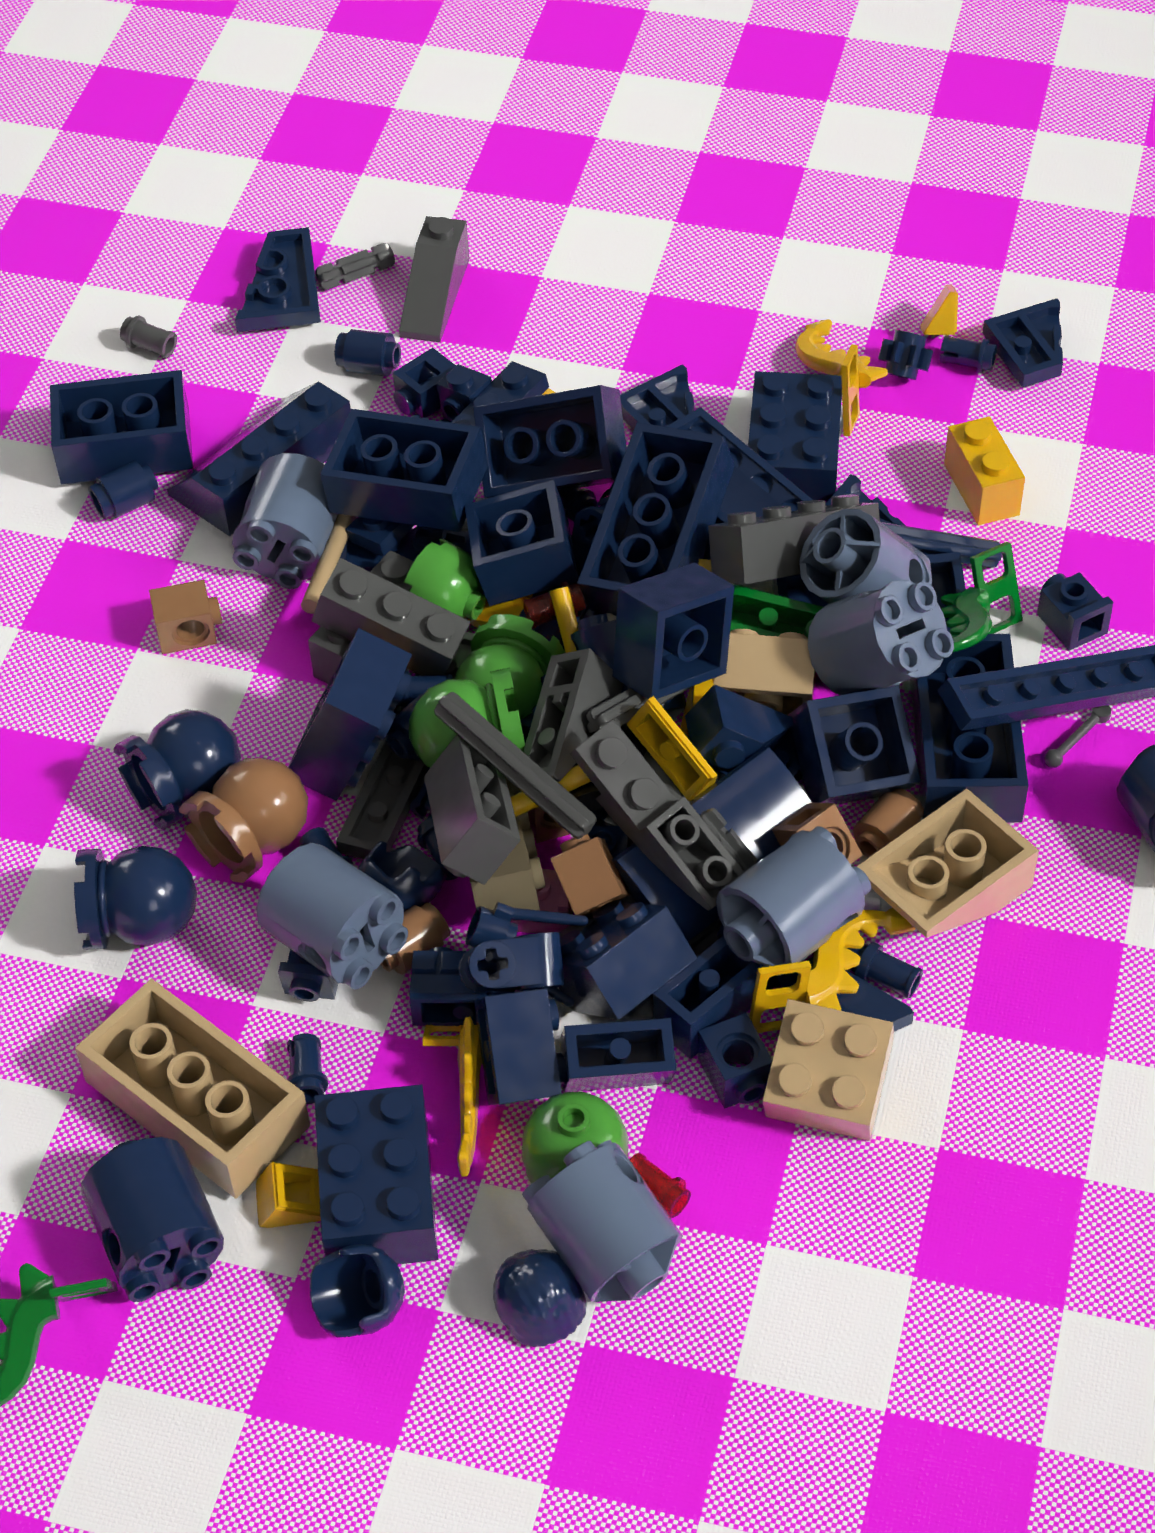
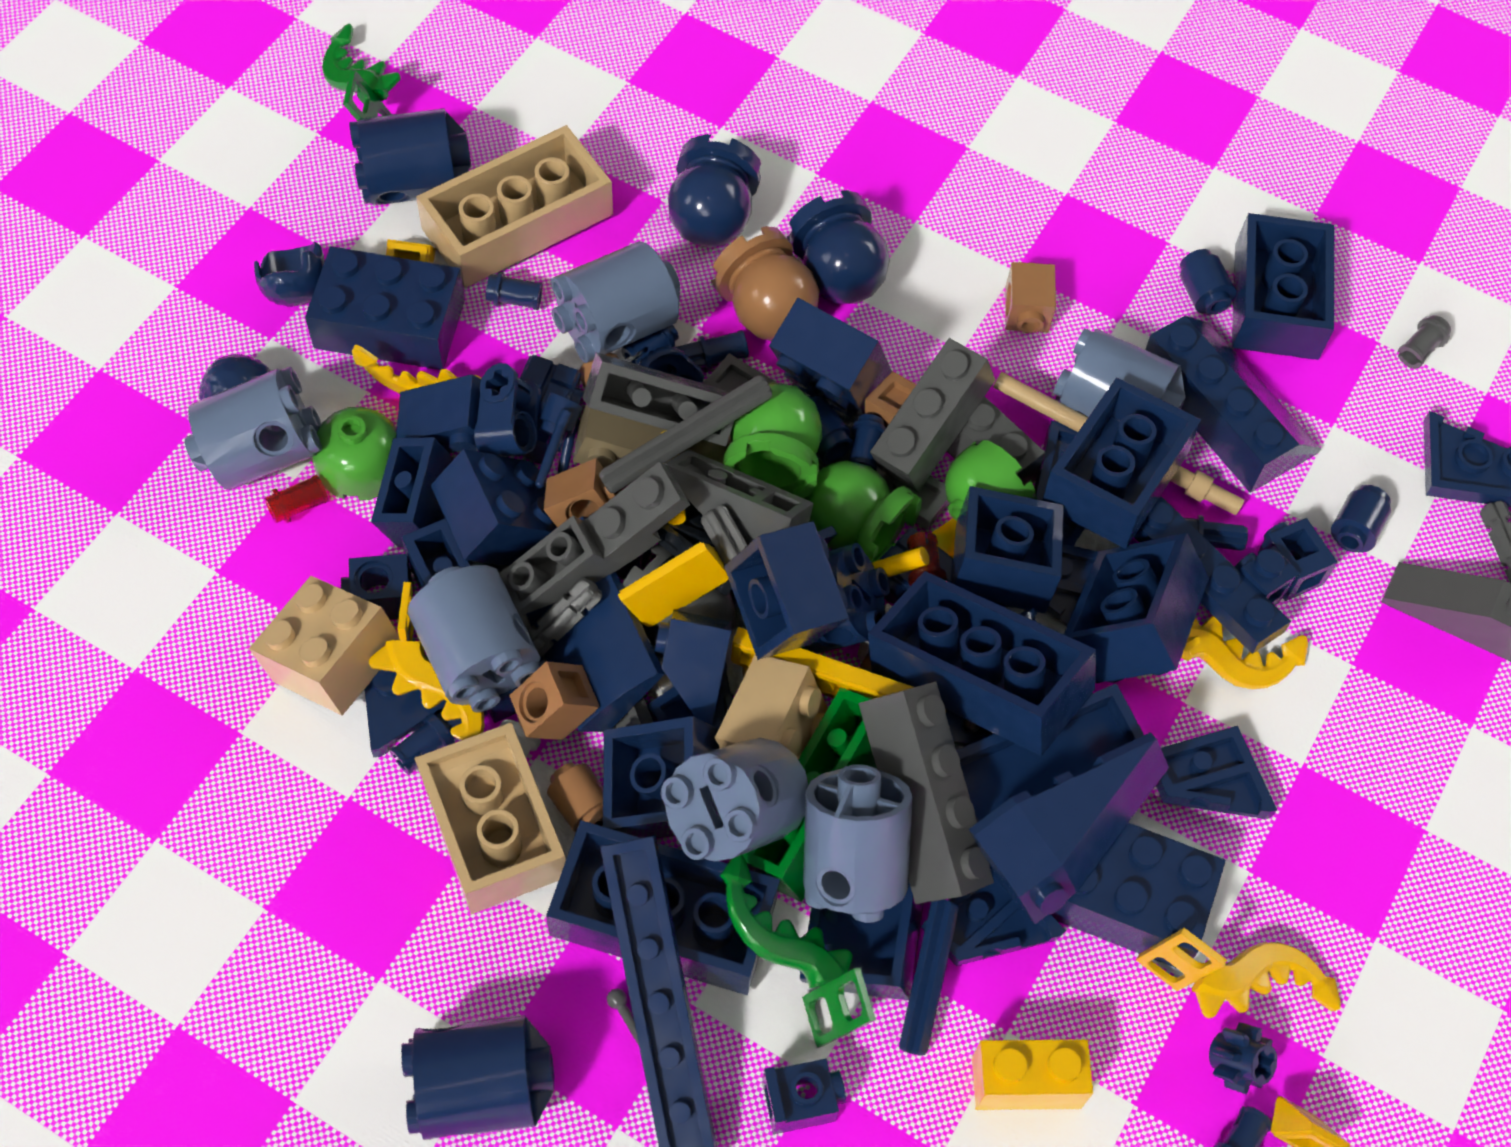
camera: 100 degrees right, 10 degrees up
(801, 448) = (1054, 840): none -> dark blue wedge

